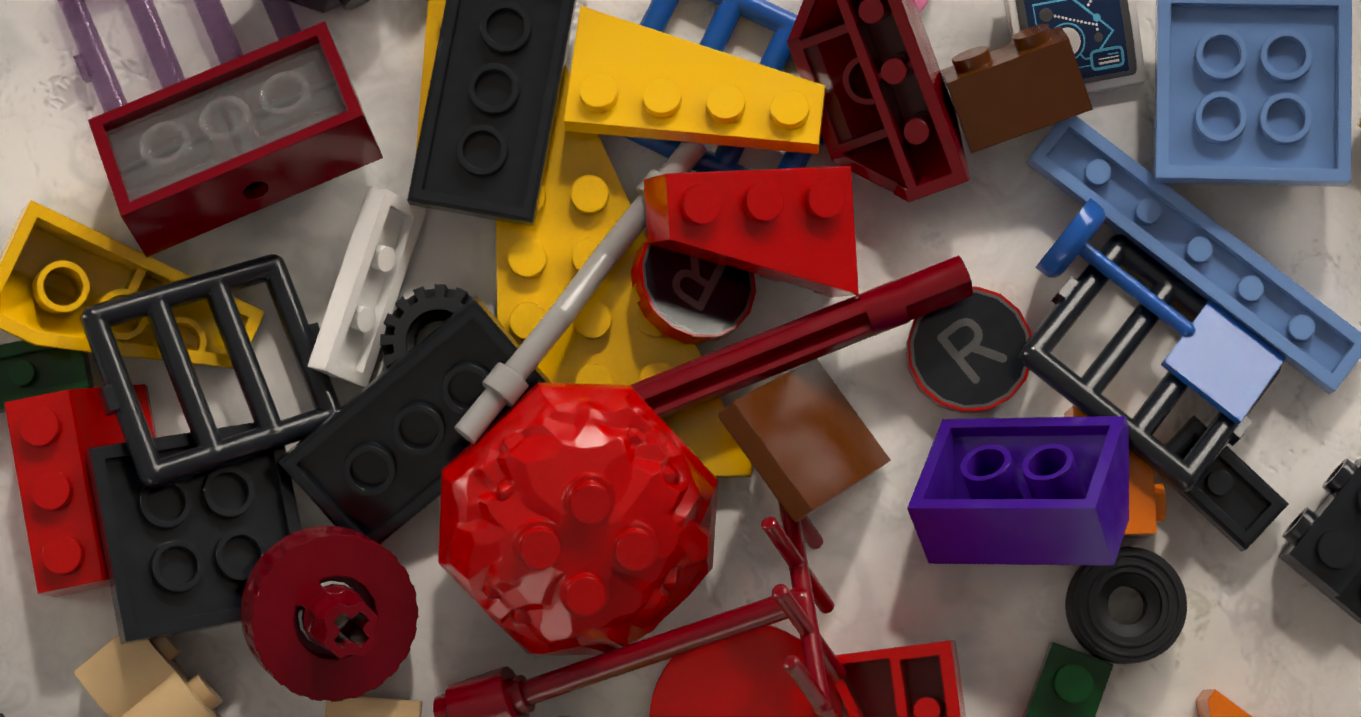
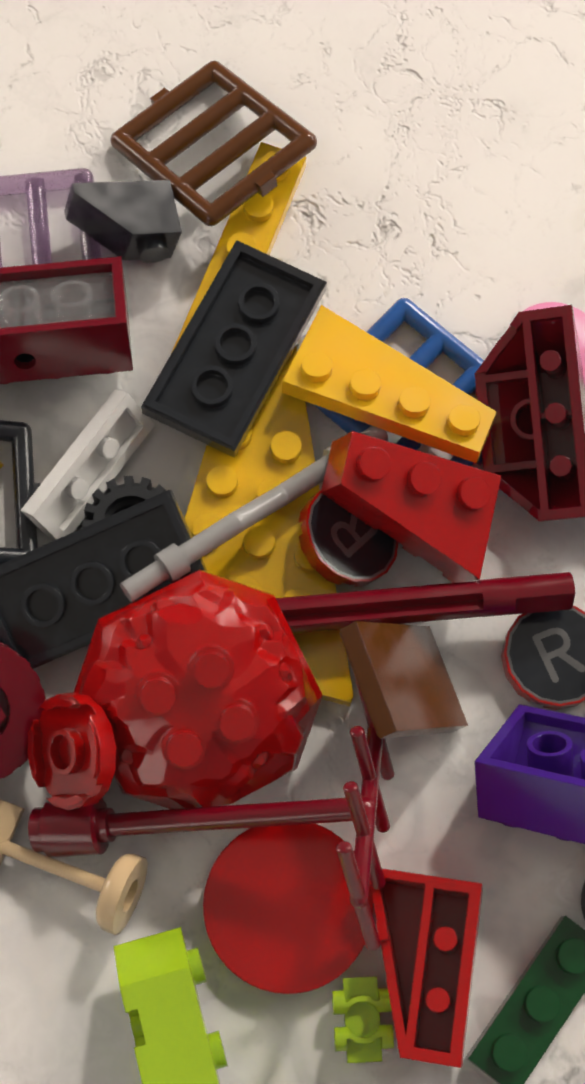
camera: 10 degrees right, 10 degrees down
(460, 628) = (72, 750): none -> red tile

